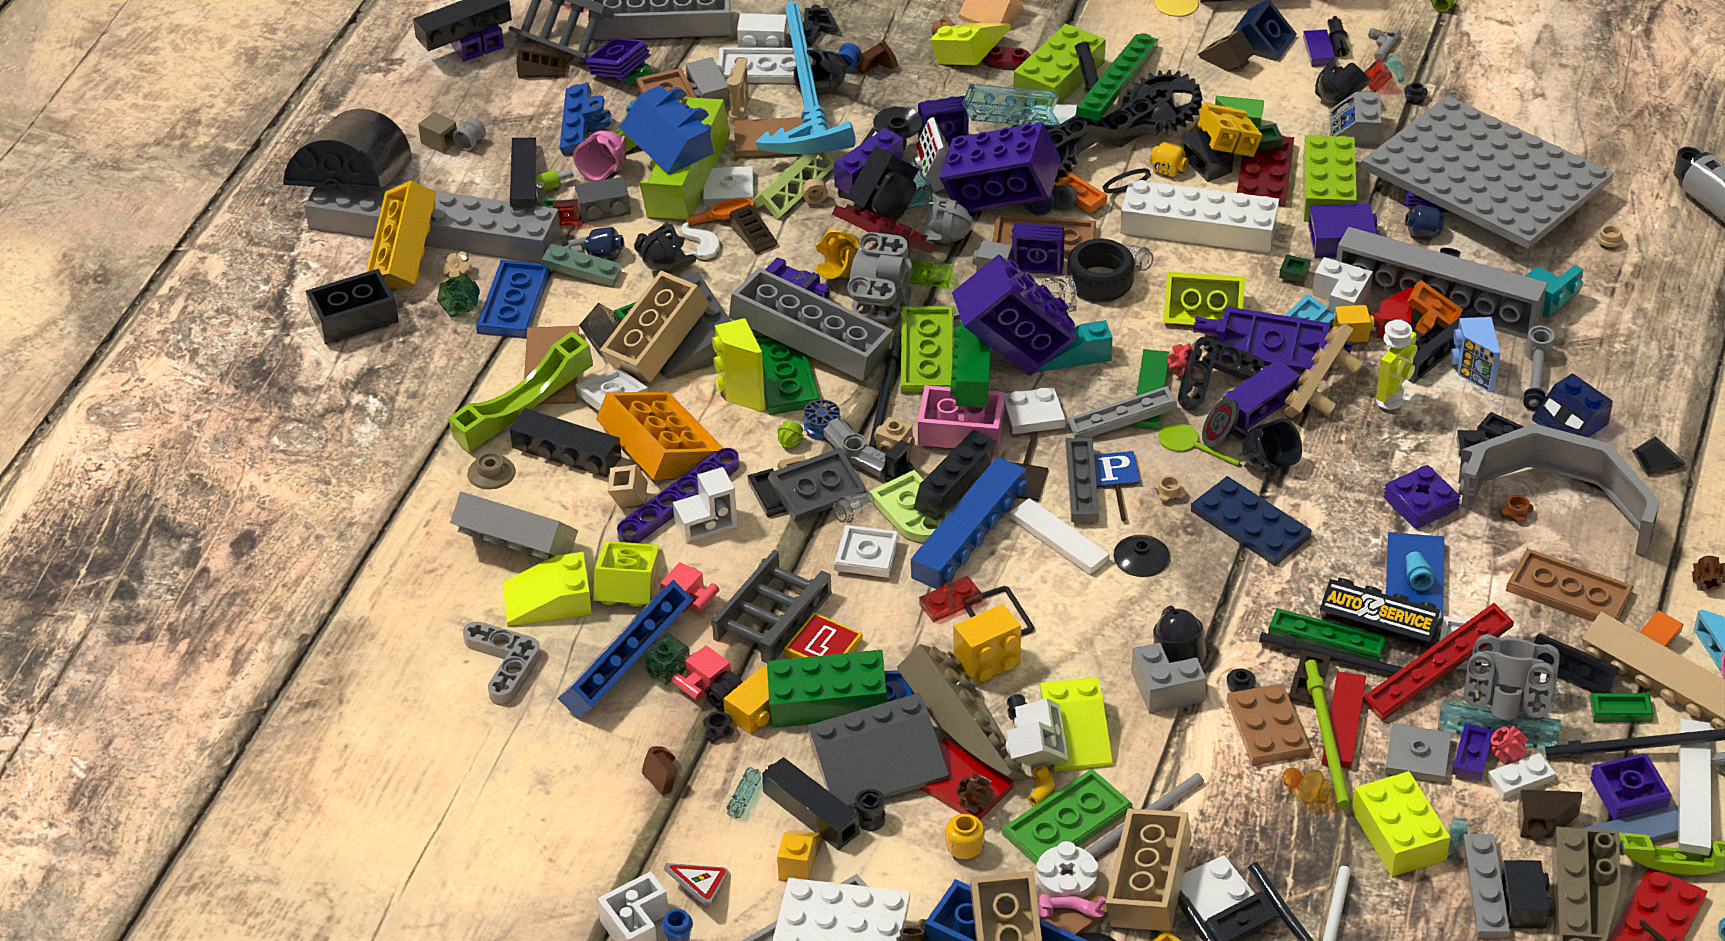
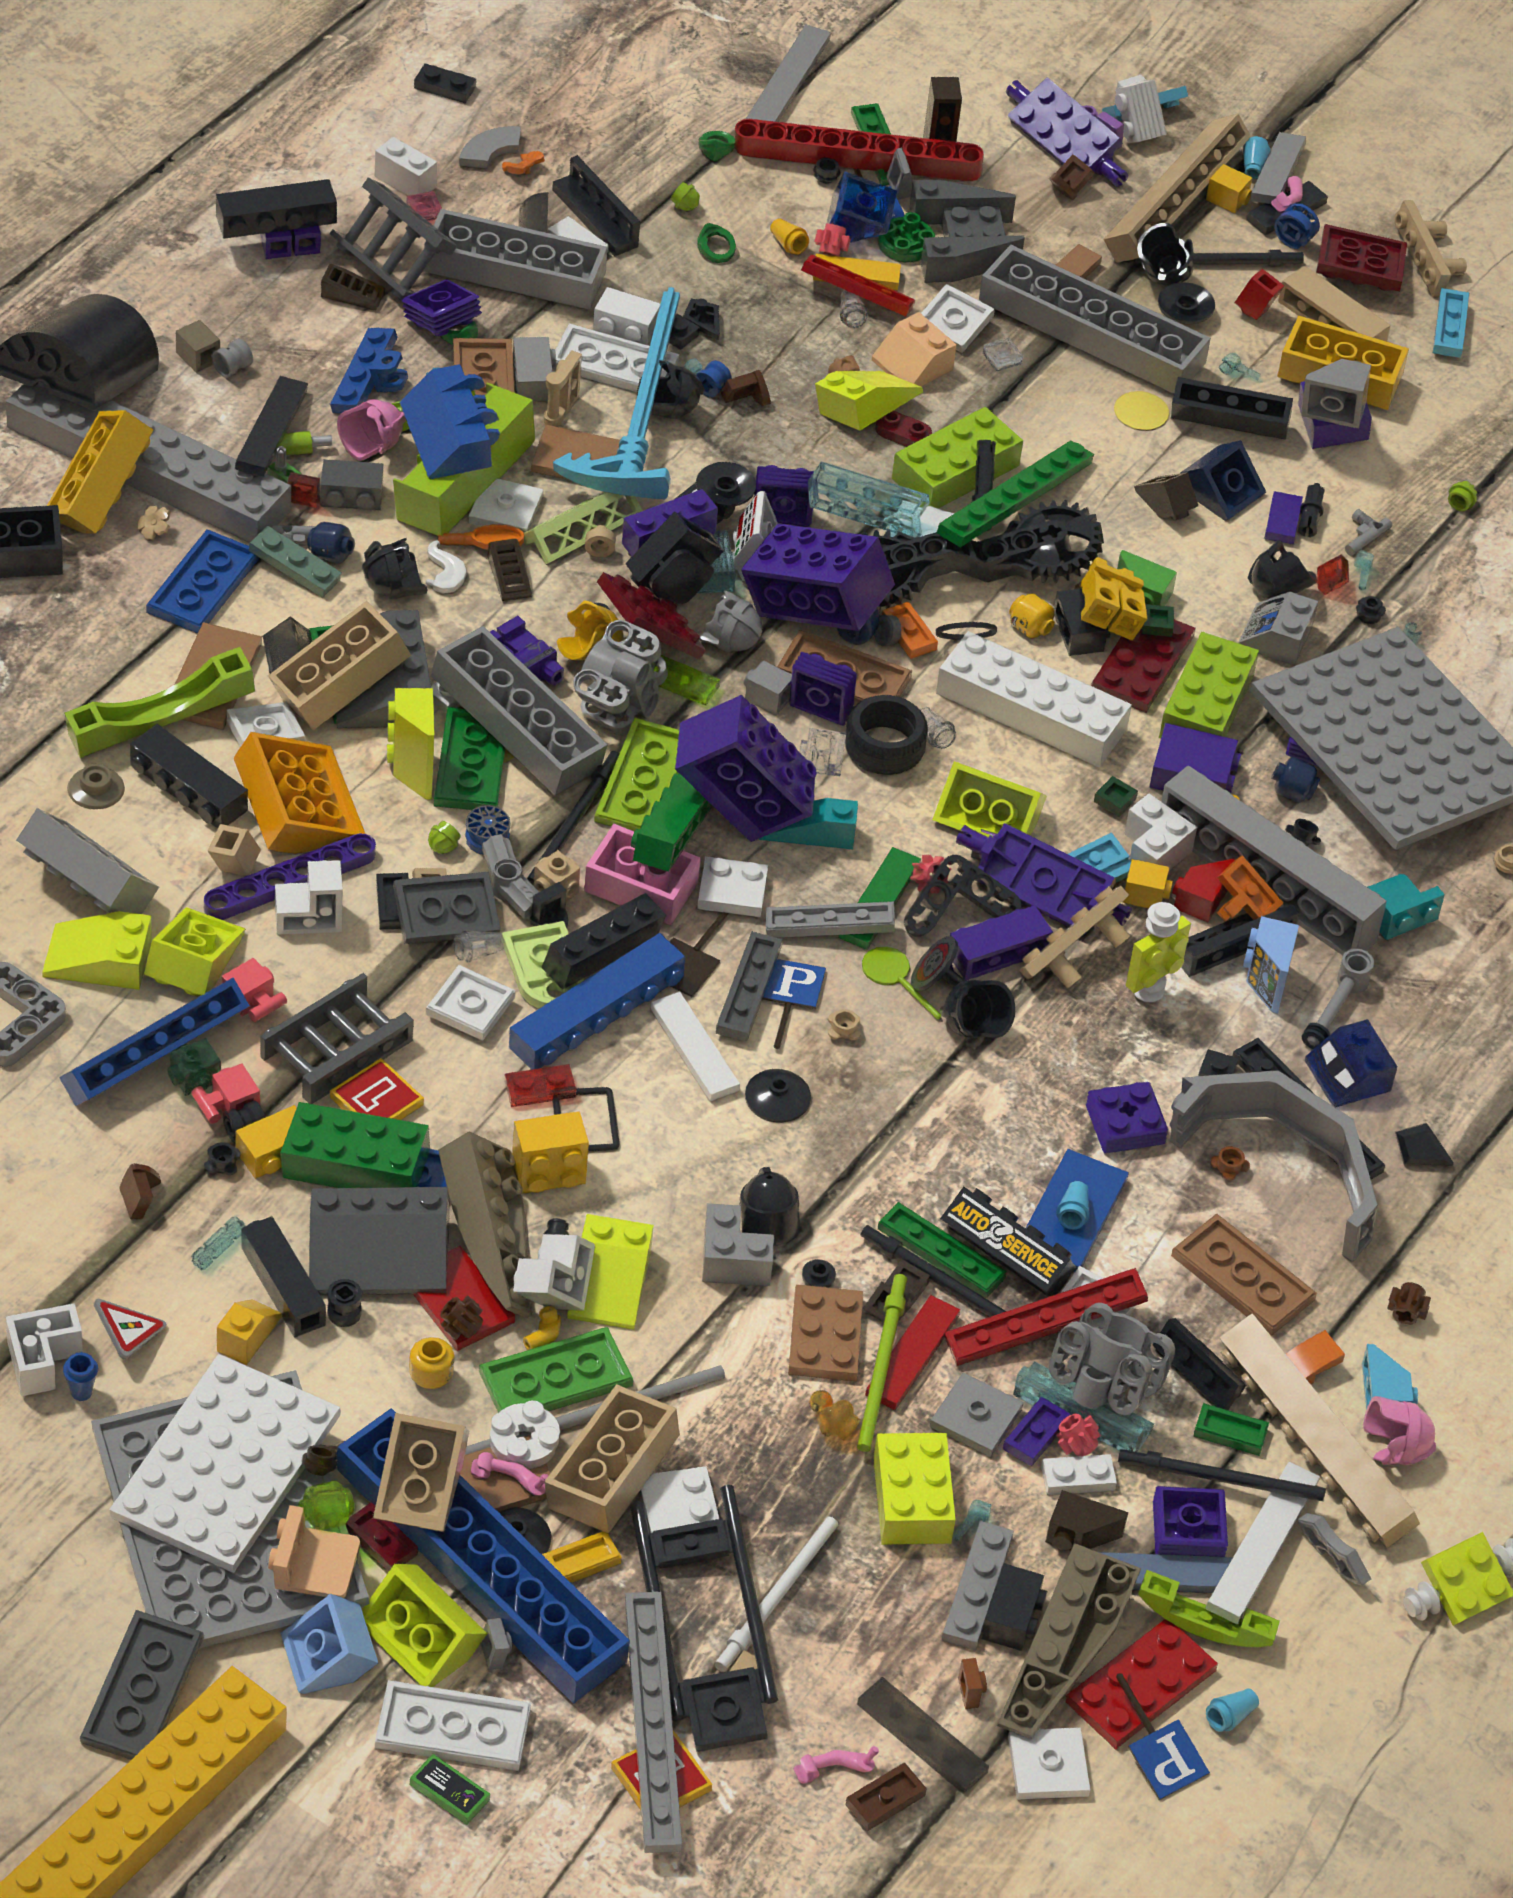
camera: 10 degrees right, 5 degrees up
(458, 295) = (139, 561): clear green brick -> none
(1251, 520) = (920, 1089): dark blue plate -> none

